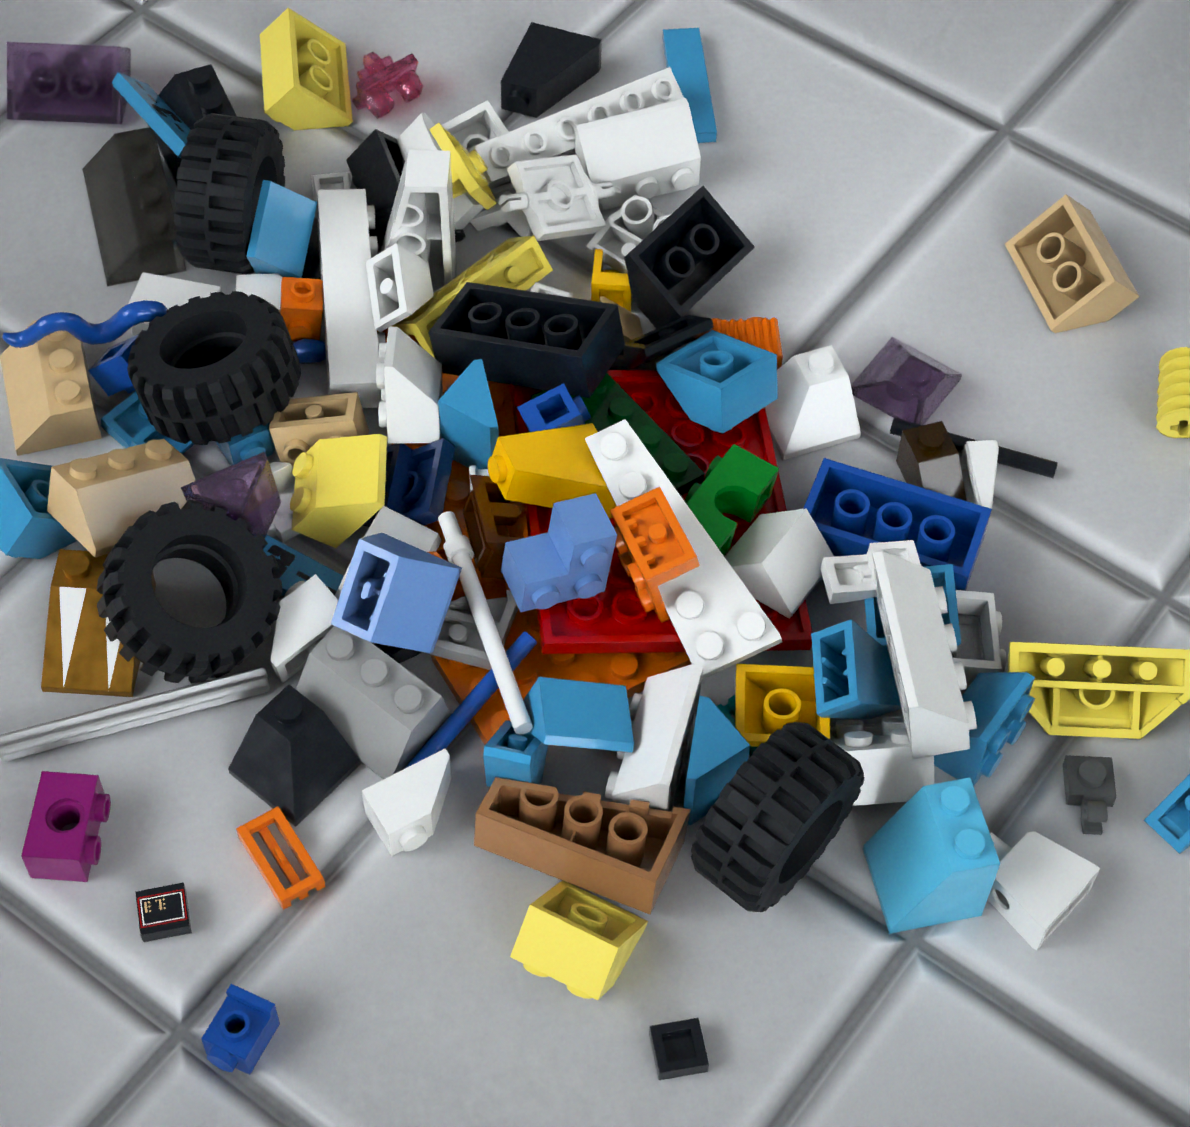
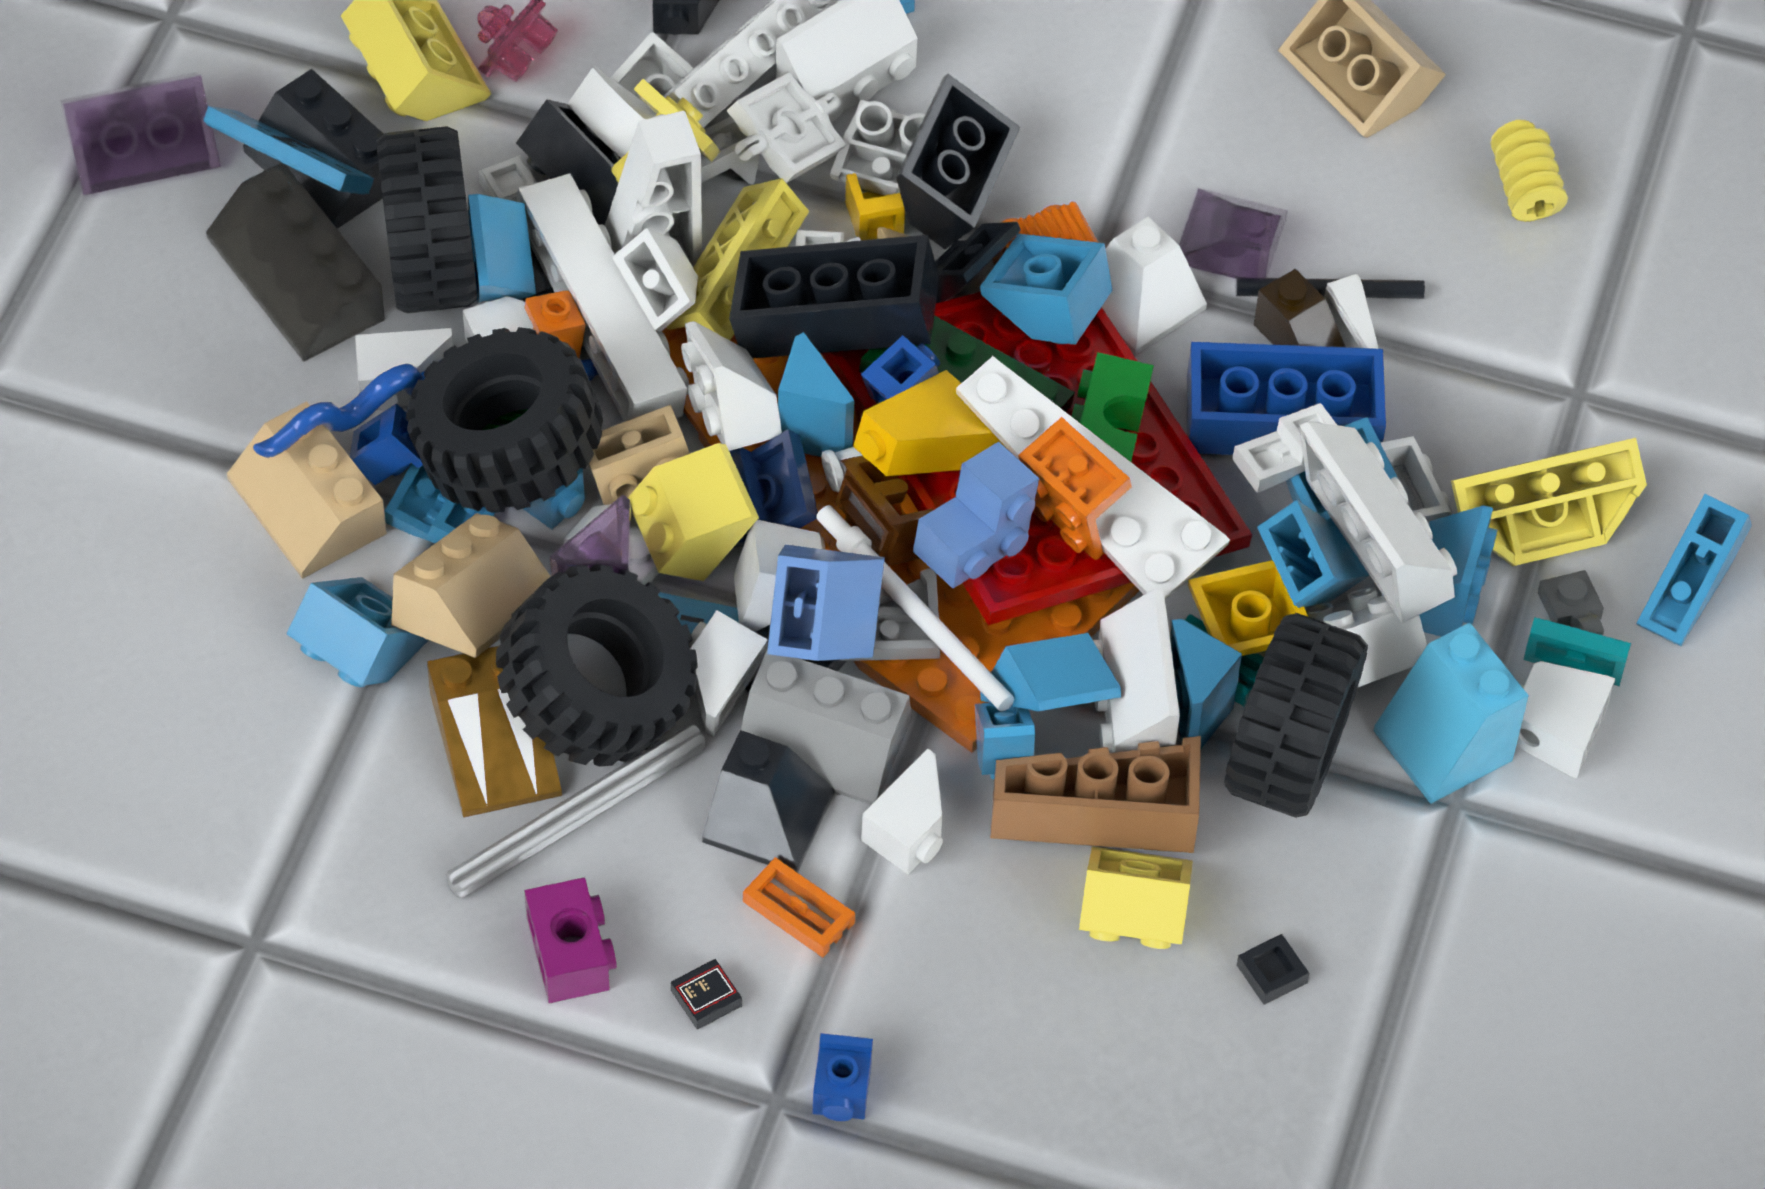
camera: 20 degrees left, 0 degrees up
(473, 702) = (930, 700): blue bar -> none
(780, 559) = (1189, 456): white slope -> none
(1076, 830) = (1576, 649): none -> teal tile

